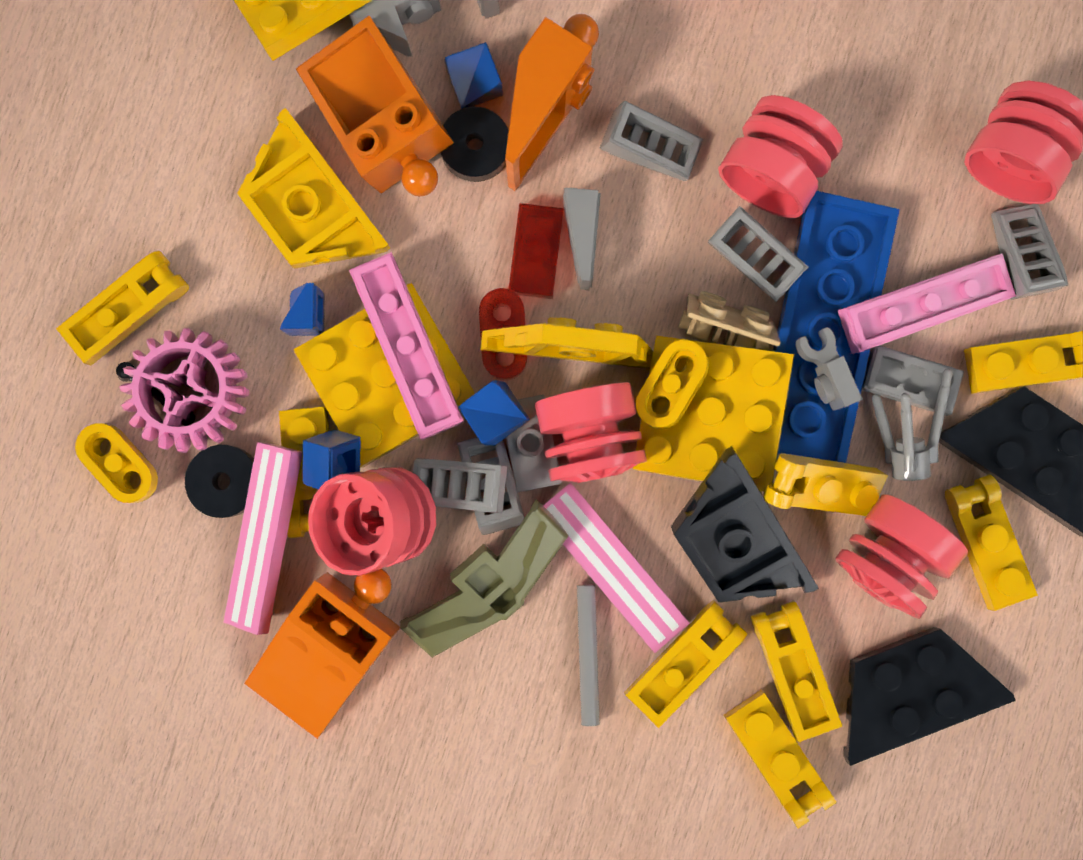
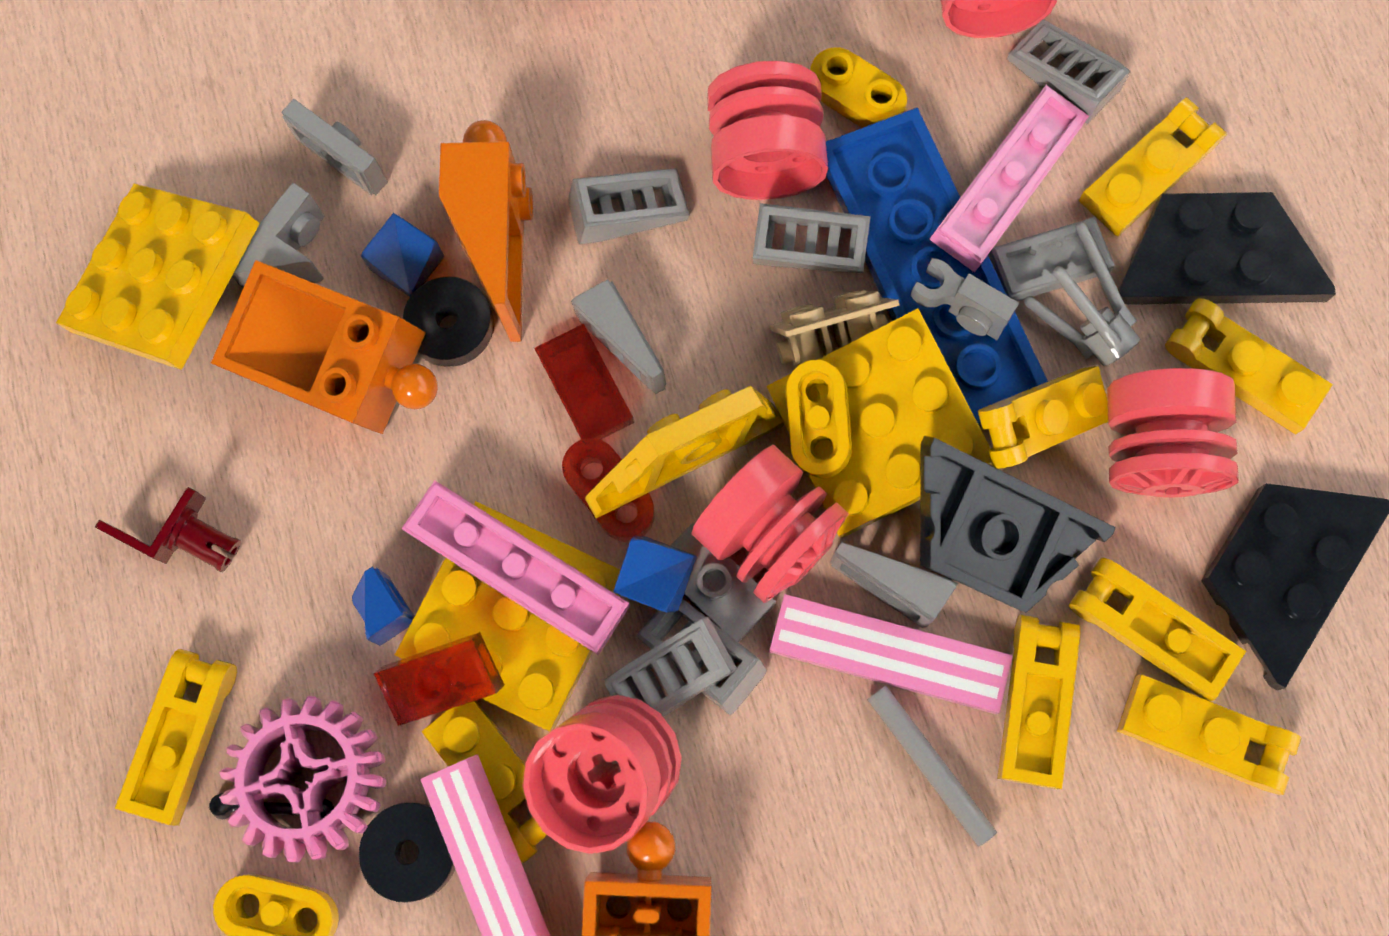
camera: 30 degrees left, 10 degrees down
(205, 171) = (182, 532): none -> dark red bracket
(305, 202) = (309, 494): yellow wing -> none
(310, 386) = (439, 679): none -> clear red plate
(330, 456) = (509, 739): blue slope -> none
(489, 585) = (776, 761): olive plate -> none
(652, 534) = (902, 586): none -> light grey slope
(864, 165) = (853, 91): none -> yellow plate

